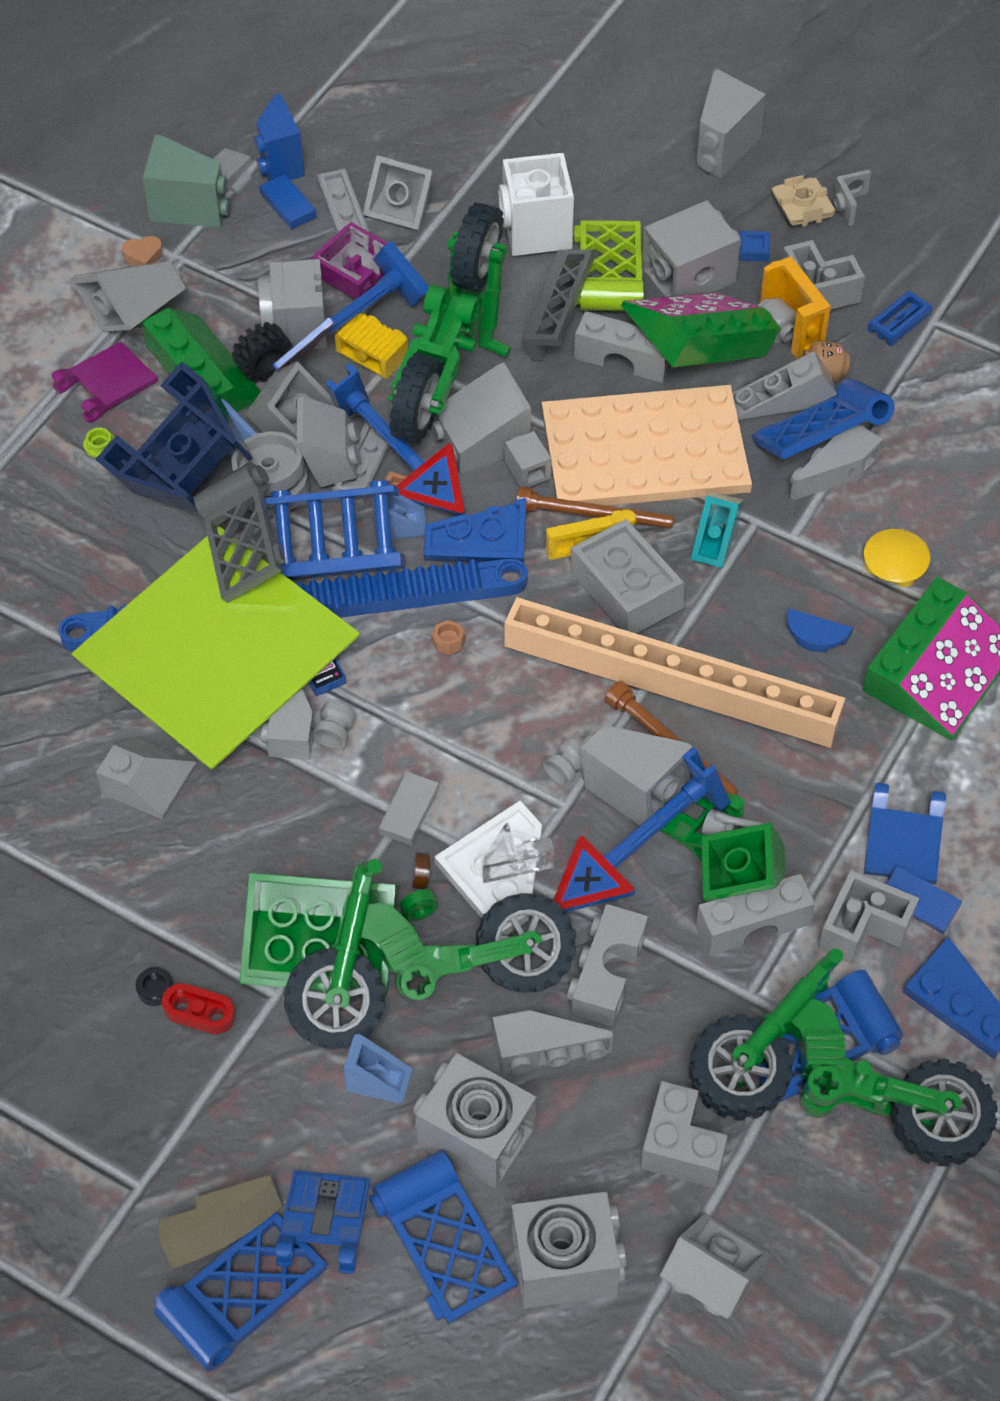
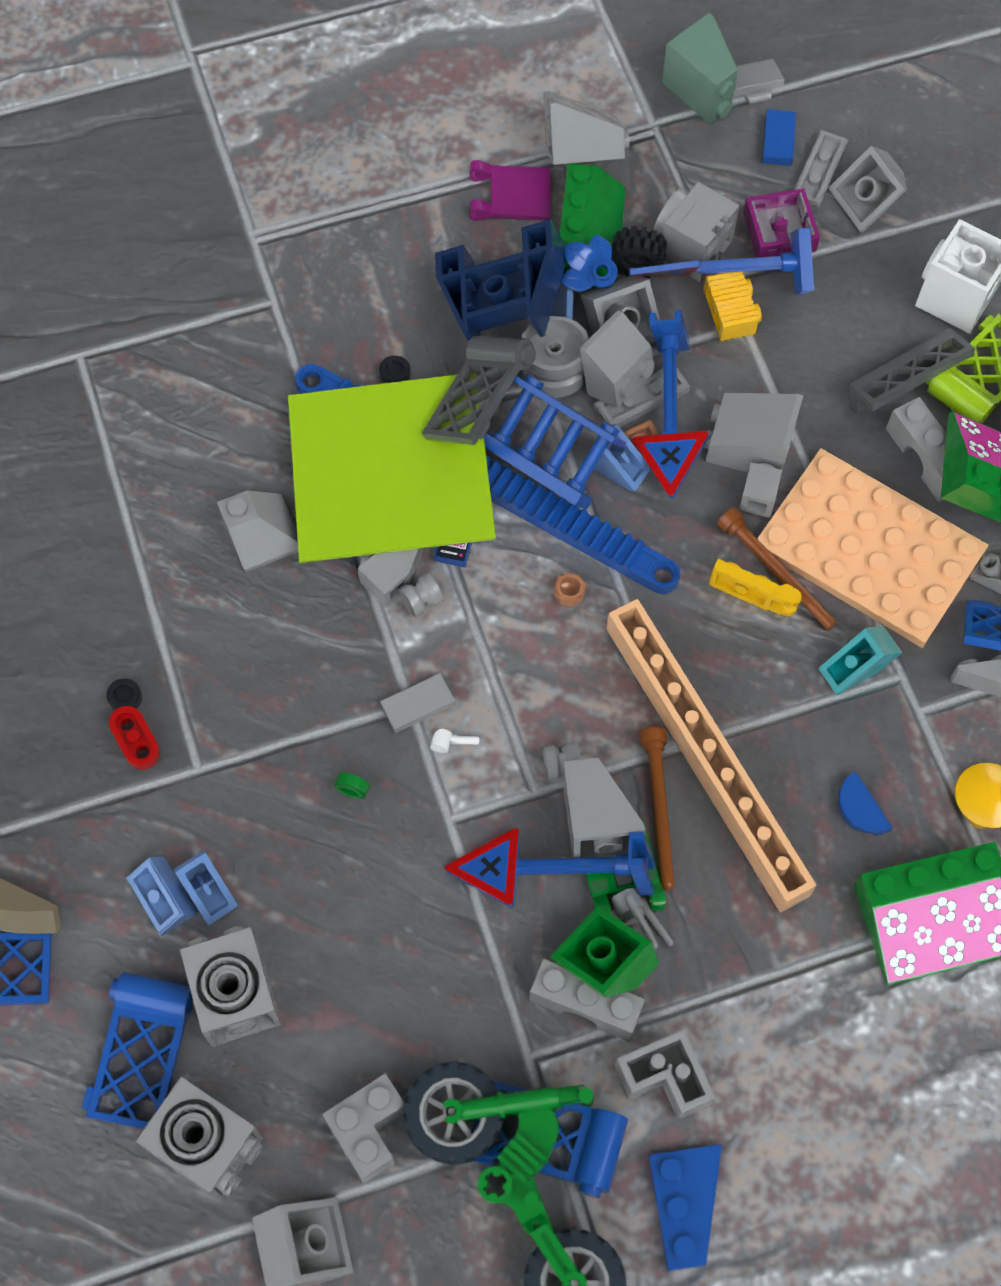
camera: 40 degrees right, 10 degrees up
(96, 441) = (460, 234): lime plate -> none
(139, 576) = (394, 369): none -> black tile
(142, 251) = (631, 105): nougat tile -> none
(232, 383) = (585, 262): none -> blue plate
(278, 142) = (807, 81): blue slope -> none
(296, 918) = (265, 748): slope -> none
(323, 1211) = (78, 962): blue flag -> none
(339, 1111) = (161, 894): none -> medium blue slope
(405, 954) = (302, 833): piece -> none
(421, 870) = (378, 759): reddish brown tile -> none
(455, 314) = (841, 294): piece -> none
(457, 817) = (443, 738): none -> white hand
(463, 862) = (435, 802): white plate -> none
(479, 536) = (669, 527): blue wing -> none
(511, 860) = (438, 803): clear slope -> none
(538, 1040) = (333, 957): light grey slope -> none
(616, 937) = (466, 927): light grey arch -> none
(627, 577) = (746, 647): light grey piece -> none
(904, 837) = (763, 1036): blue flag -> none
(934, 906) = (732, 1099): blue tile -> none

